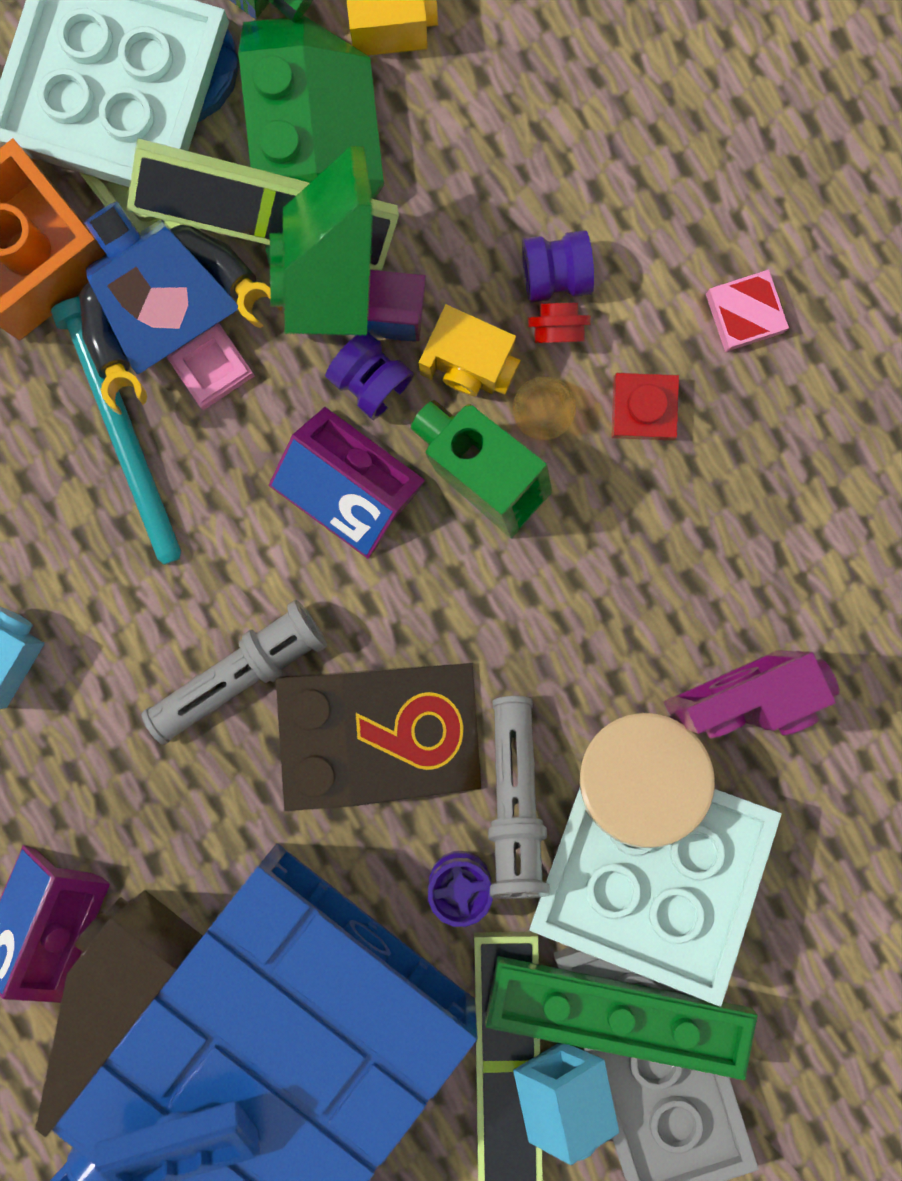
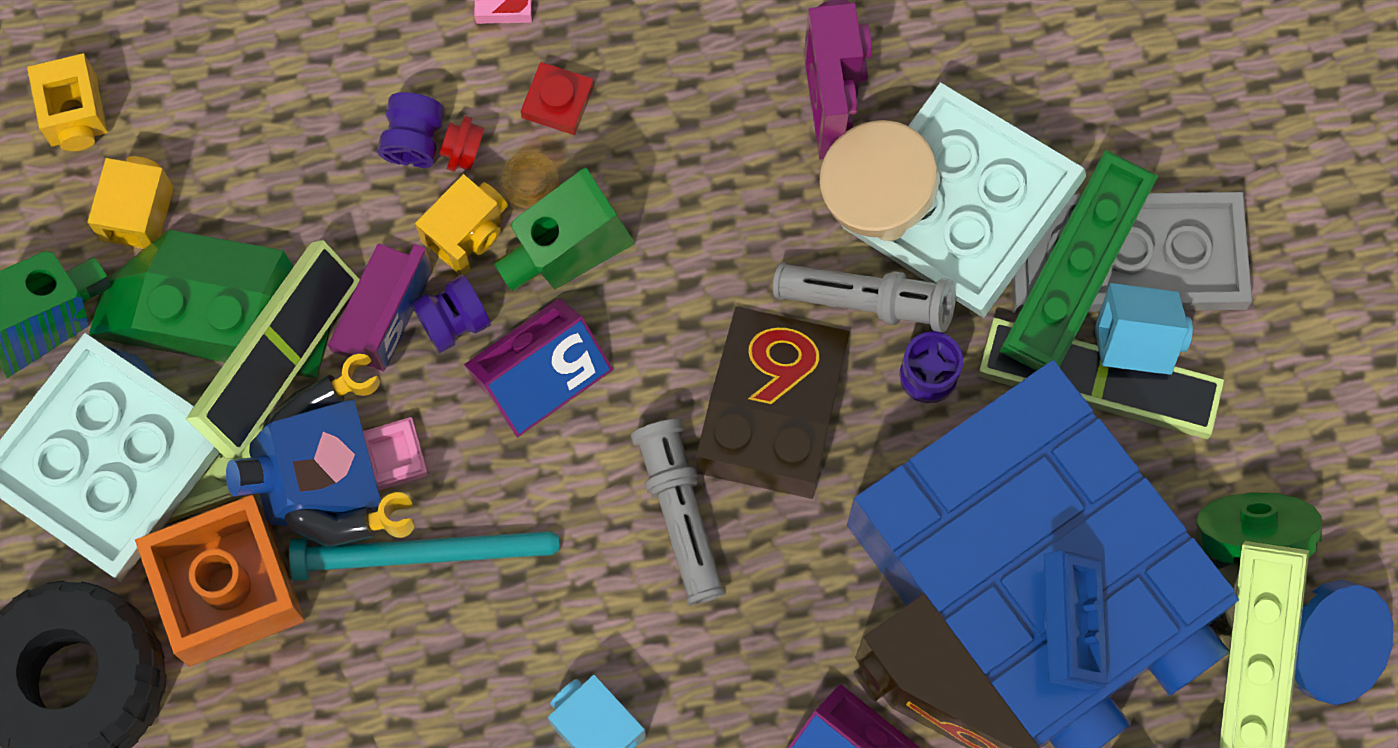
camera: 75 degrees left, 15 degrees down
(325, 252) = (338, 288): green slope -> none

